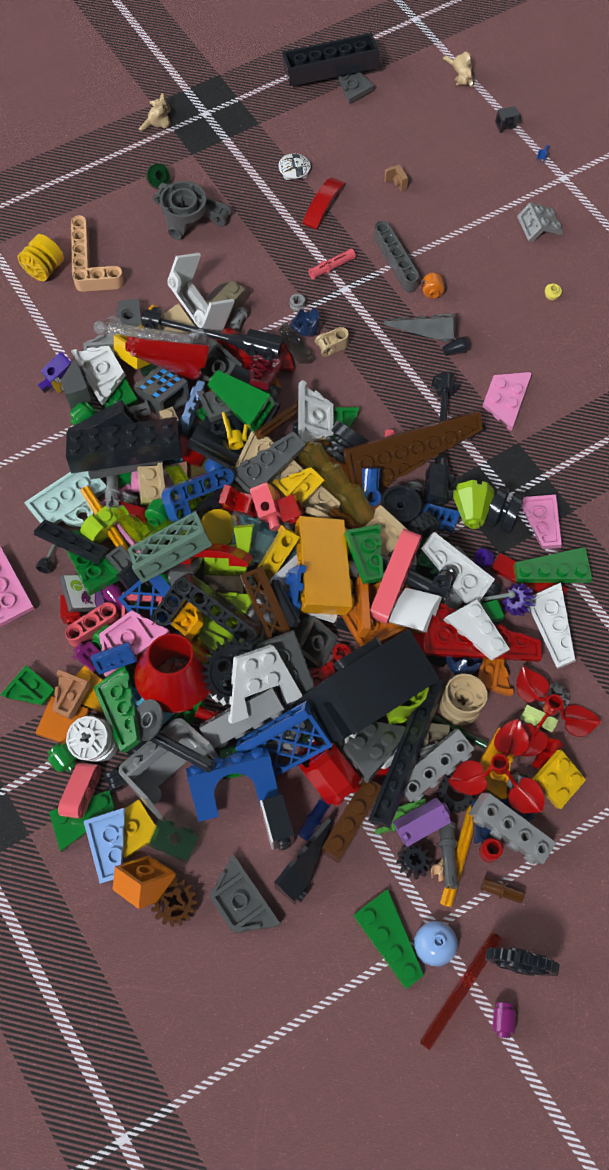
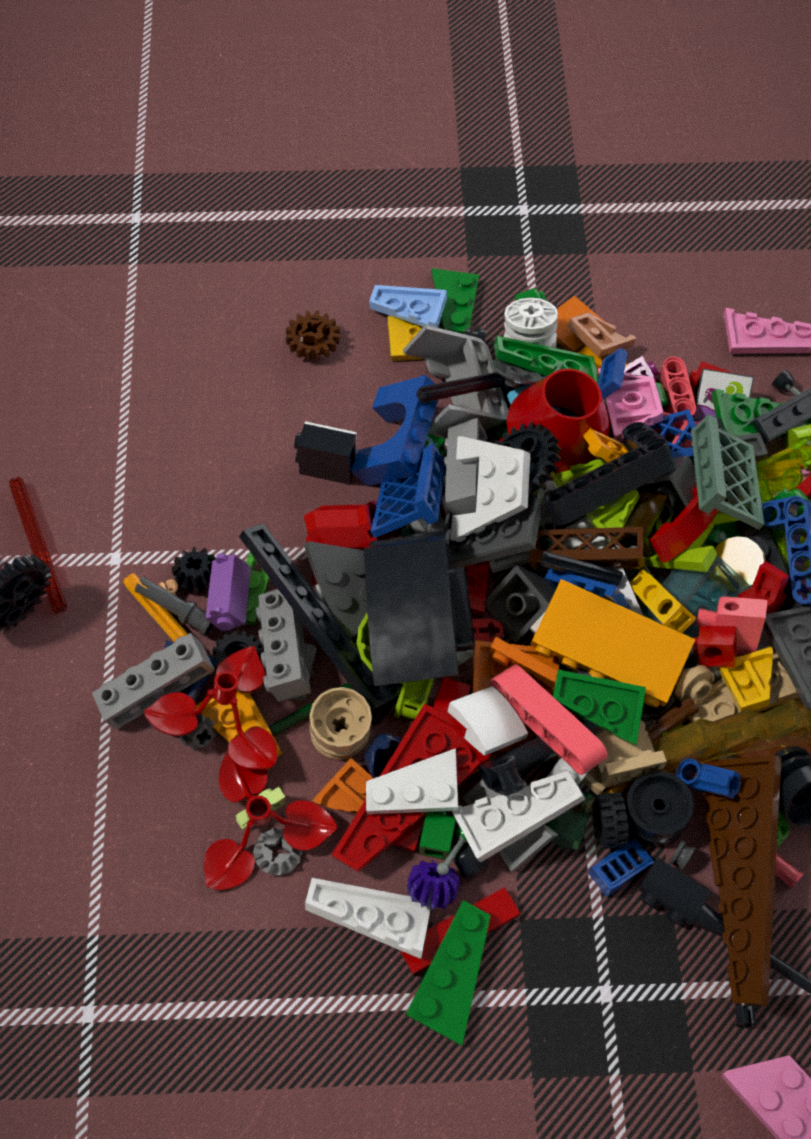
camera: 120 degrees right, 5 degrees down
(29, 688) = (631, 310): green wing -> none
(79, 790) = (480, 300): coral beam -> none
(142, 881) = (351, 313): orange slope -> none
(160, 841) = (375, 357): clear green brick -> none
(241, 901) = (273, 393): dark grey wing -> none
(298, 874) = (259, 453): black wedge -> none
(313, 820) = (308, 498): clear blue axle -> none
(351, 820) = (272, 511): reddish brown arch -> none
(387, 934) = (143, 506): green wing -> none
(437, 732) = (323, 678): dark tan bracket -> none
(445, 947) = (98, 545): light blue cylinder -> none
(473, 502) = (610, 910): lime cone -> none
(484, 558) = (522, 885): dark purple tile -> none
(496, 848) = (145, 645): red brick -> none
(502, 890) = (100, 643): reddish brown axle -> none
(503, 509) = (580, 949): black wheel -> none
(543, 519) = (540, 1014): bright pink wing -> none
(552, 746) = (209, 789): red plate -> none
(559, 779) = (172, 780): yellow plate -> none

